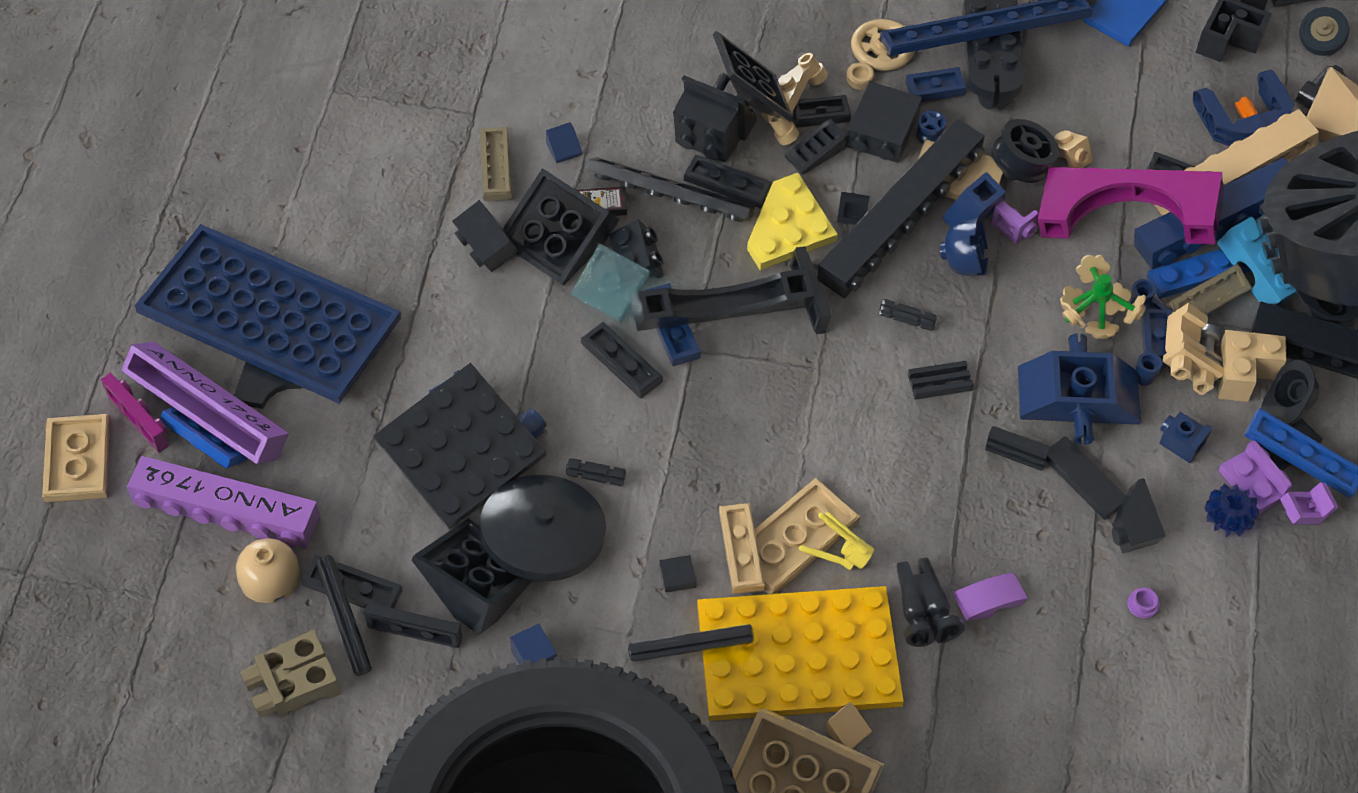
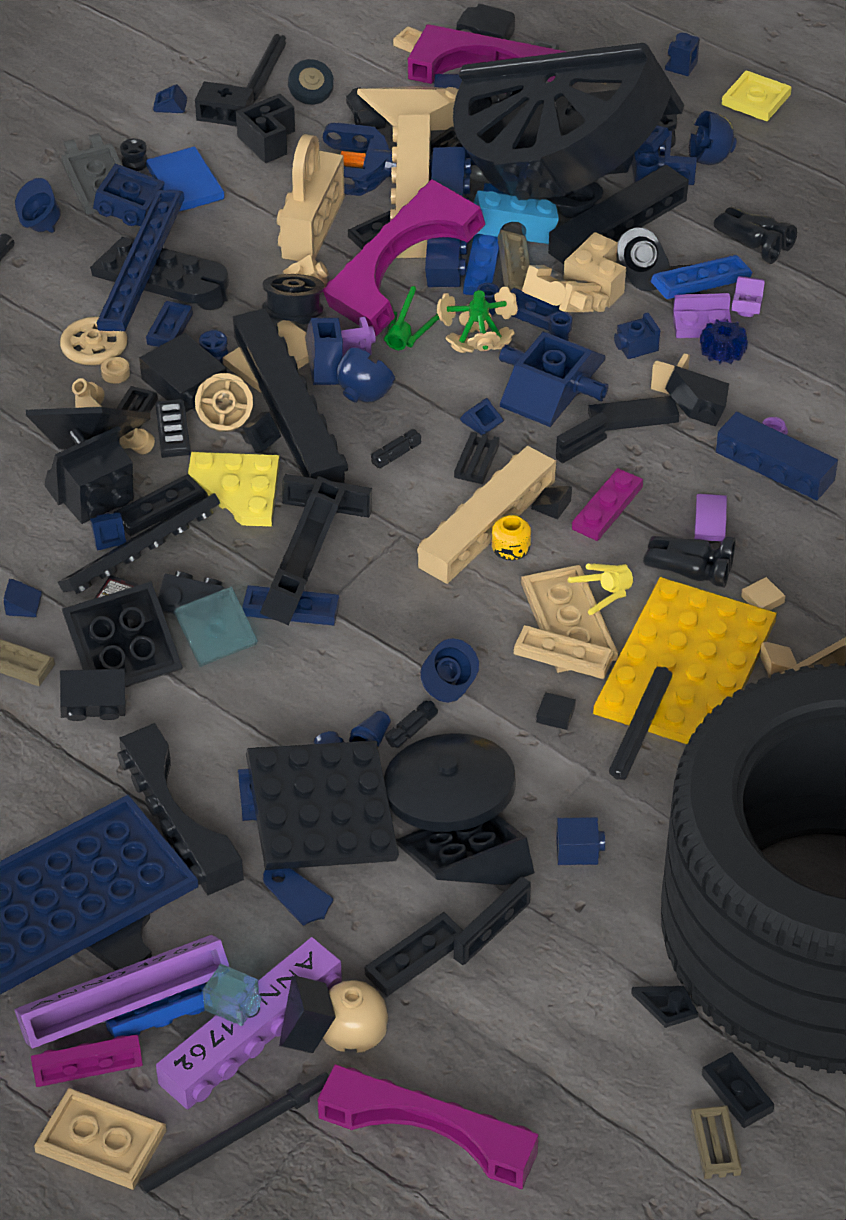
camera: 60 degrees left, 10 degrees down
(172, 567) = (296, 1097): none -> black bar
(184, 731) = (361, 1101): none -> magenta arch
(219, 471) = (231, 995): none -> clear light blue brick
(242, 532) = (306, 1015): none -> black slope
(293, 675) = (485, 1048): dark tan hips -> none
(343, 615) = (449, 967): black axle -> none
(370, 478) = (298, 895): none -> dark blue piece
(442, 310) = (206, 852): none -> black arch
(566, 446) = (371, 729): none -> dark blue cone
(621, 360) = (300, 658): black tile -> none
(657, 469) = (449, 670): none -> dark blue piece
(669, 159) = (108, 530): none -> dark blue tile
(848, 447) = (511, 537): none -> yellow head
(857, 164) = (224, 402): none -> tan cylinder
(871, 417) = (470, 527): none -> tan brick
(922, 682) = (763, 595): none -> tan tile
(926, 462) = (553, 501): none -> black slope
(954, 506) = (607, 504): none -> magenta plate
(993, 362) = (482, 417): none -> dark blue slope
(1049, 250) = (399, 331): none -> green plant
(1106, 618) = (776, 456): none -> dark blue brick
(1151, 103) = (313, 201): none -> tan brick
(1157, 482) = (662, 371): none -> tan panel

